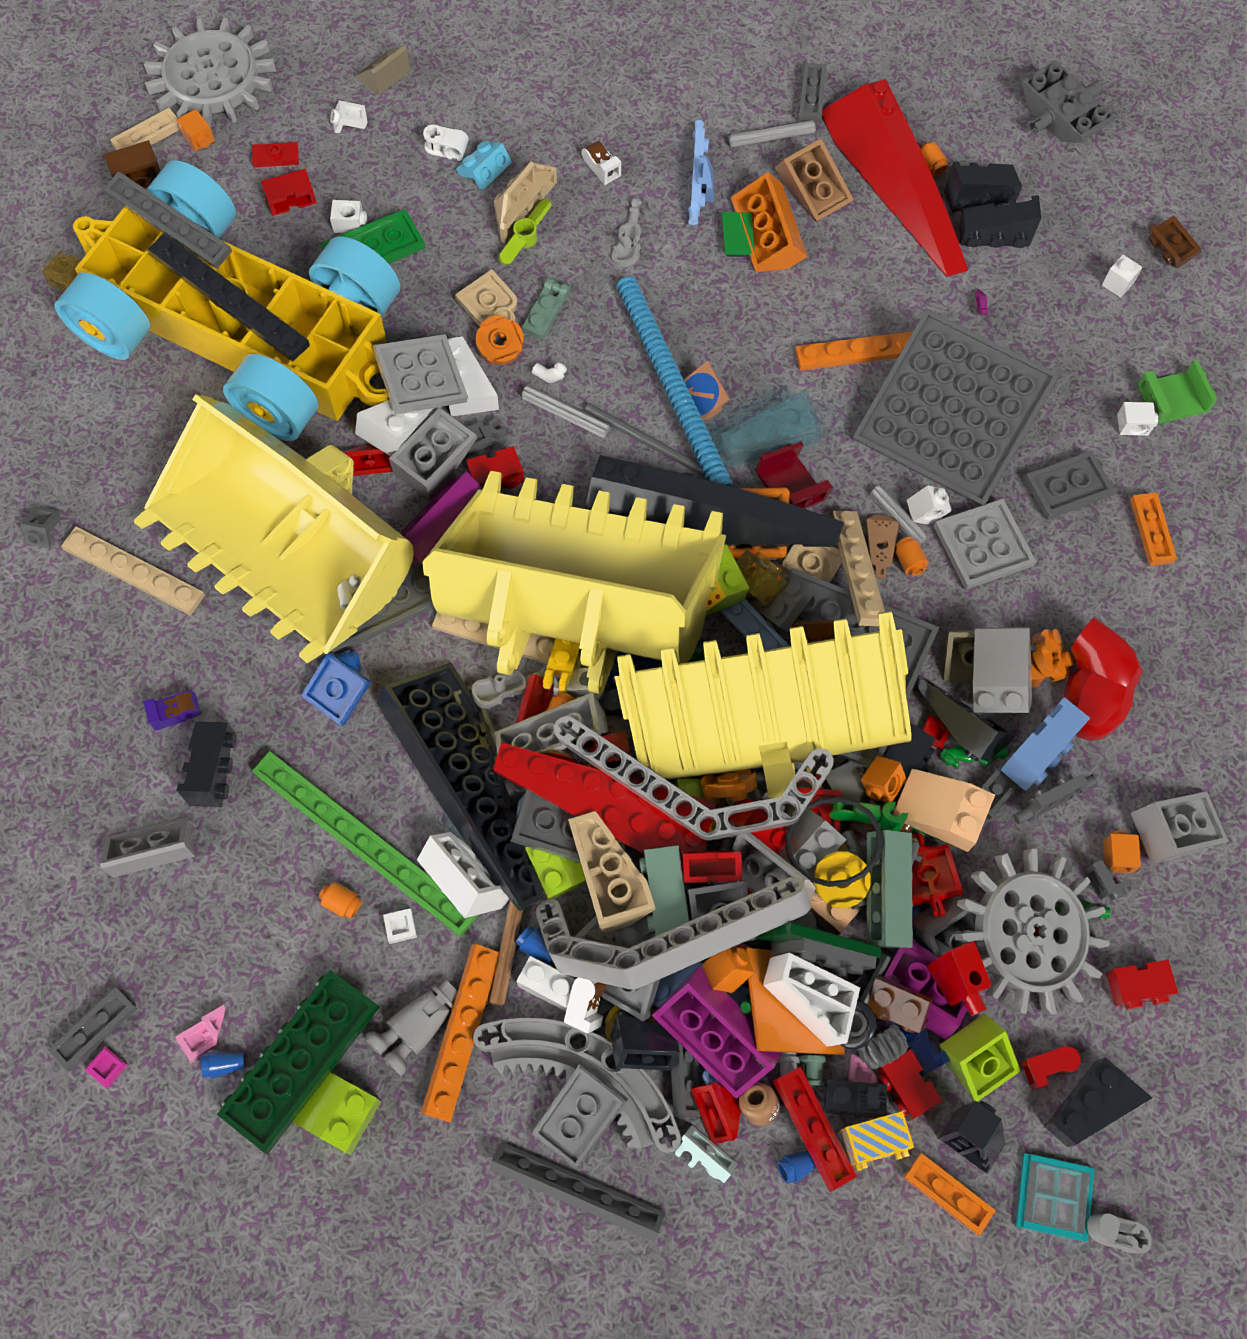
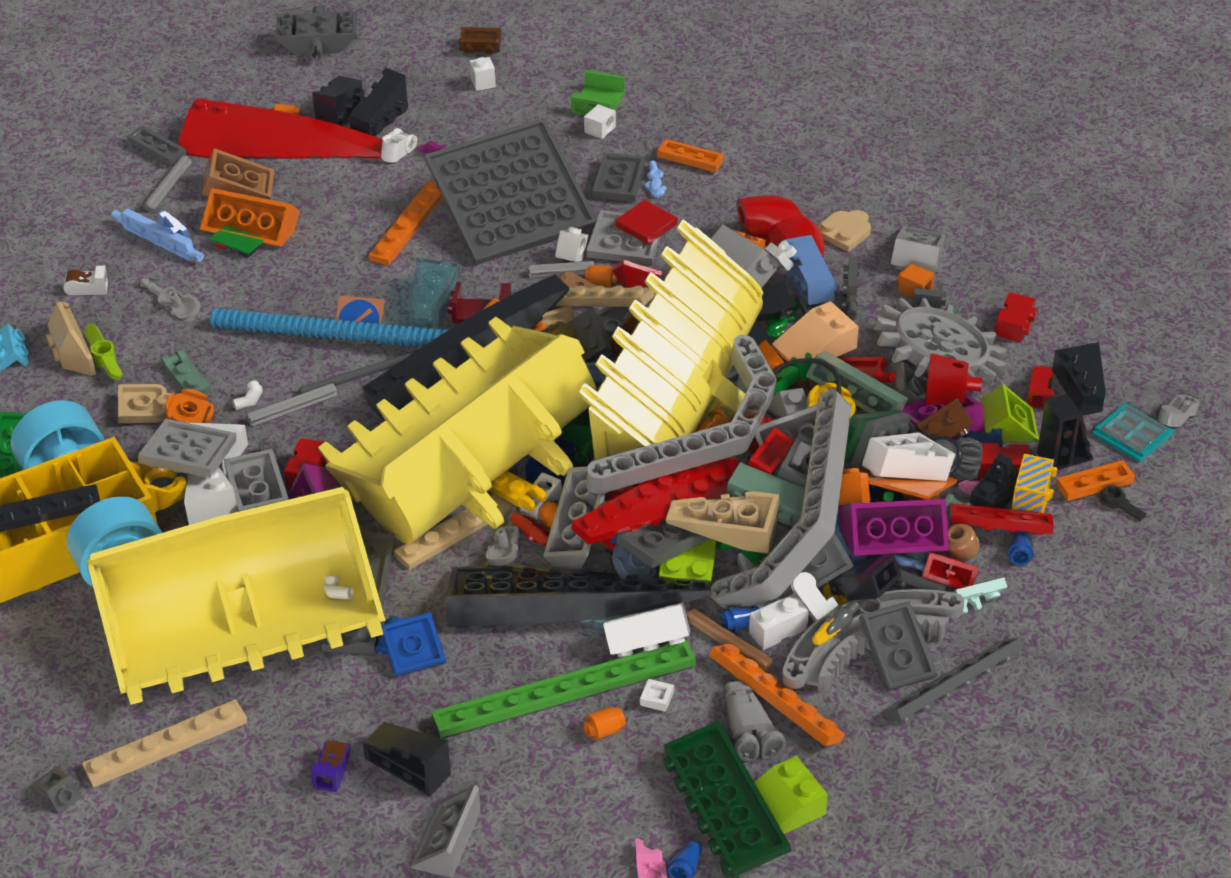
camera: 55 degrees left, 25 degrees down
(561, 1044) = (835, 623): none -> dark grey piece
(927, 588) = (633, 274): none -> red slope
(937, 1226) = (1113, 497): none -> pearl dark grey plate
(961, 272) = (397, 145): none -> white piece
(1013, 550) = (646, 222): none -> red tile
(1037, 705) = (782, 253): none -> white tile
(1084, 522) = (655, 182): none -> light blue animal
(1158, 737) = (846, 228): none -> tan plate

